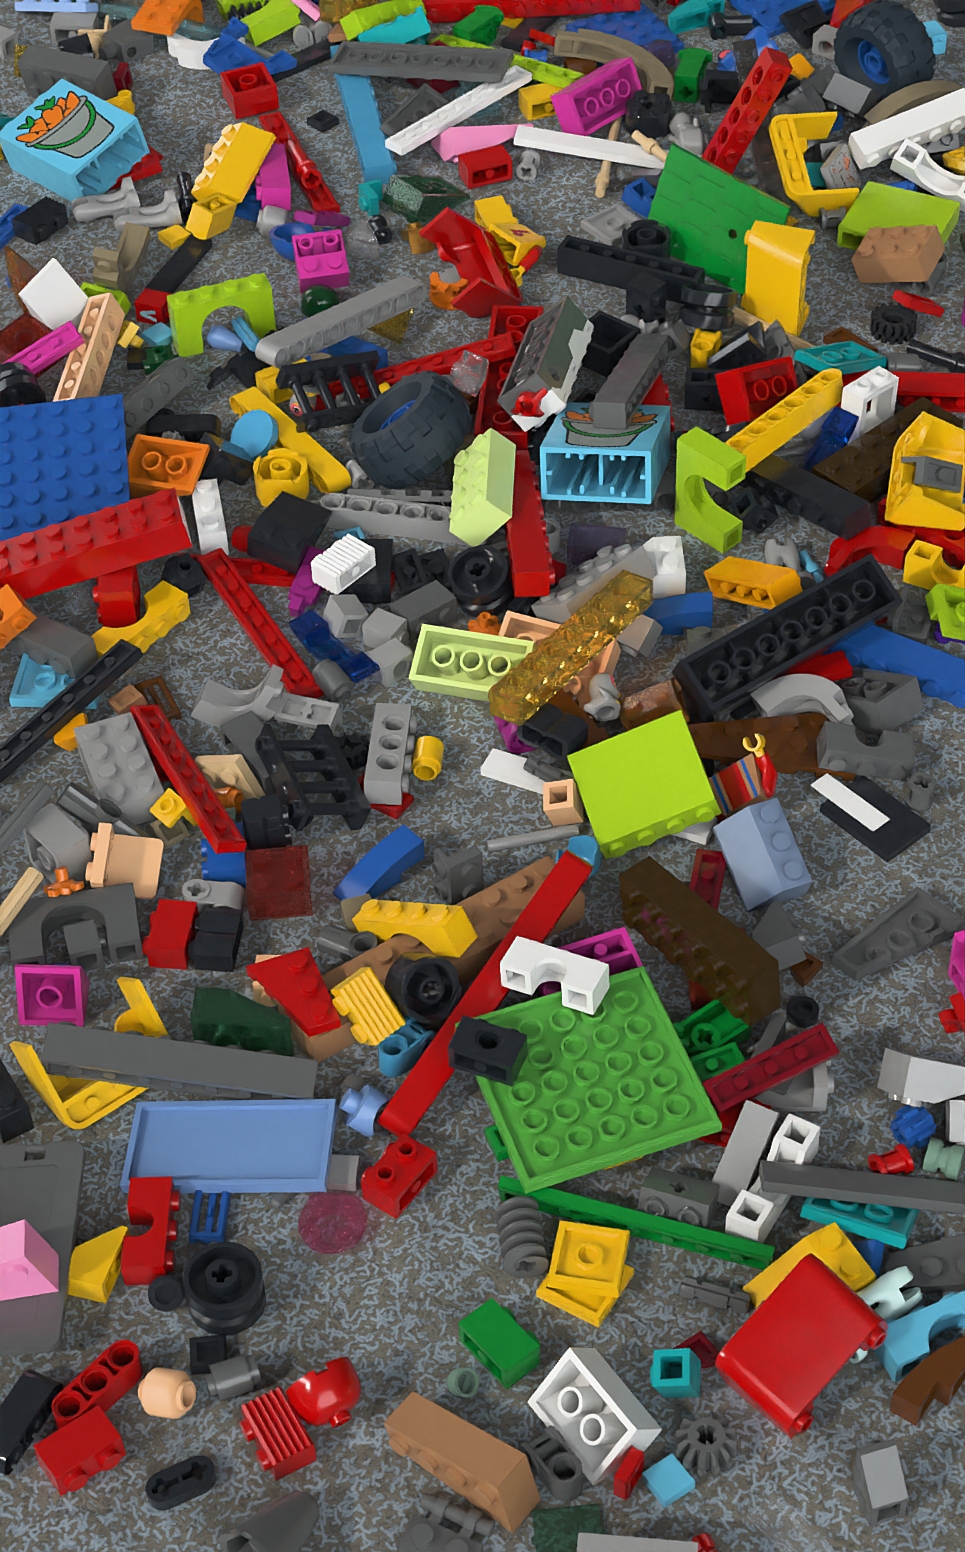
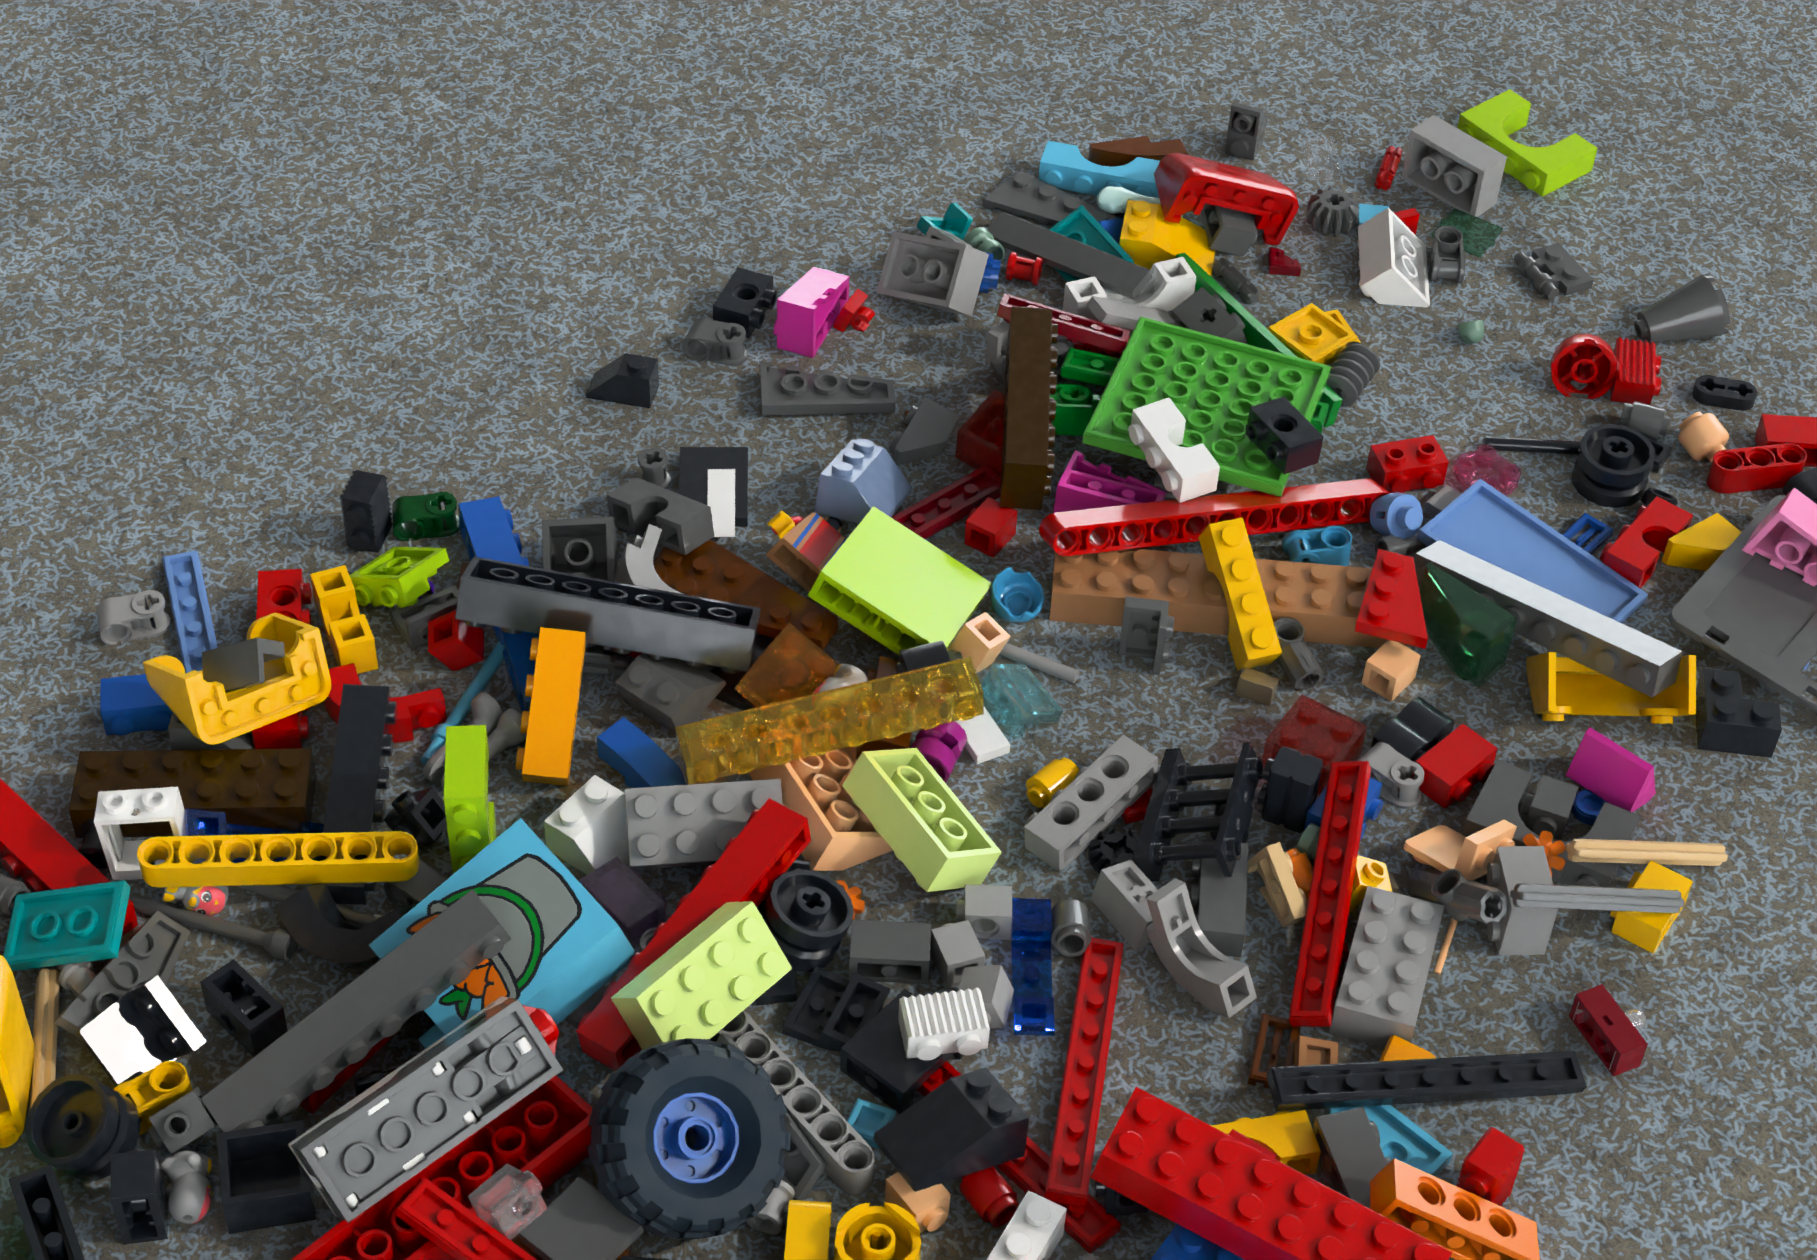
camera: 145 degrees left, 0 degrees up
(299, 1300) = (1532, 445): none -> black bar
(303, 589) = (1006, 1068): magenta hinge -> none
(367, 1007) = (1345, 547): yellow brick -> none
(382, 865) = (1202, 703): blue slope -> none
(423, 986) = (1283, 532): black brick -> none
(465, 1459) = (1513, 280): medium nougat wedge -> none
(500, 1342) = (1424, 331): green brick -> none
(504, 800) = (1018, 698): none -> clear light blue bracket
(676, 1373) = (1319, 241): teal brick -> none
(755, 388) = (226, 930): red brick -> none
(802, 1011) = (961, 395): black tile -> none

